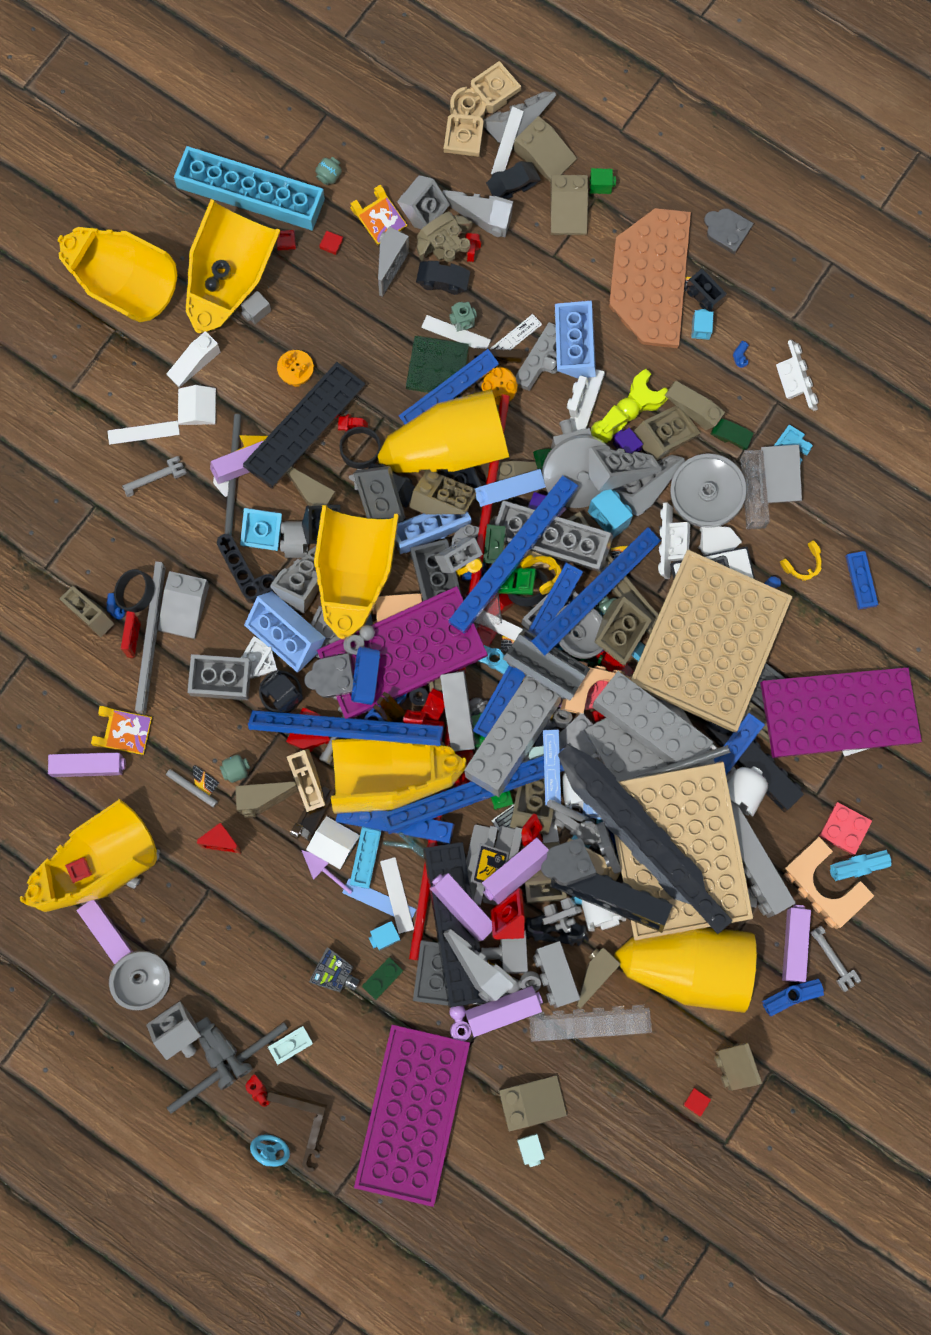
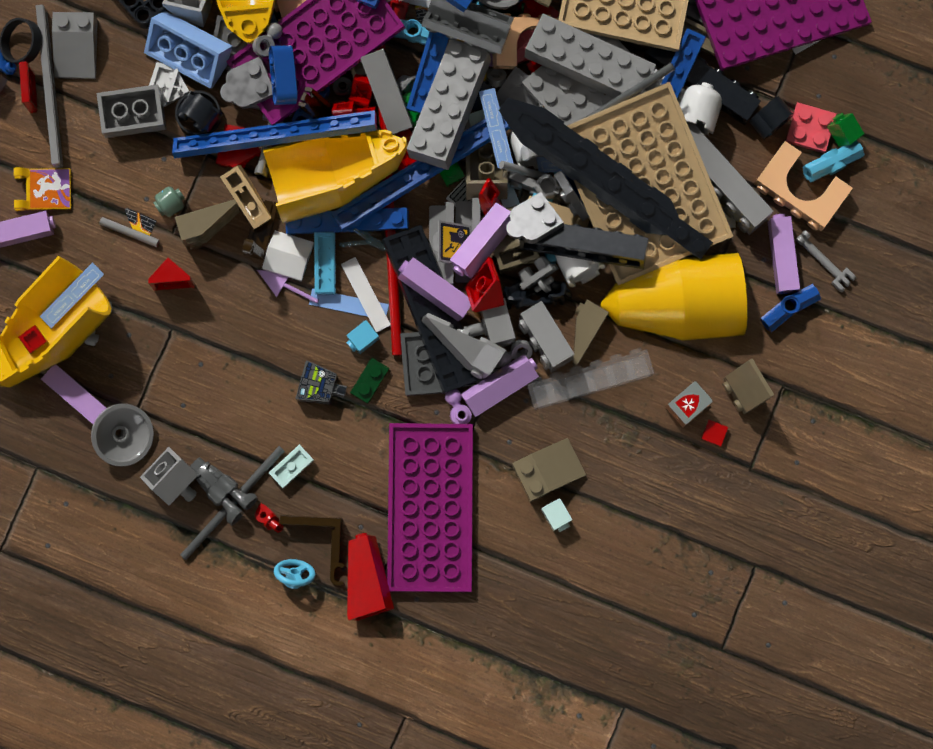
camera: 10 degrees left, 5 degrees up
(124, 837) = (71, 295): none -> light blue sticker
(337, 1172) = (366, 579): none -> red slope
(678, 1069) = (689, 404): none -> piece
(810, 812) = (771, 117): none -> black piece
(877, 838) = (845, 129): none -> green brick

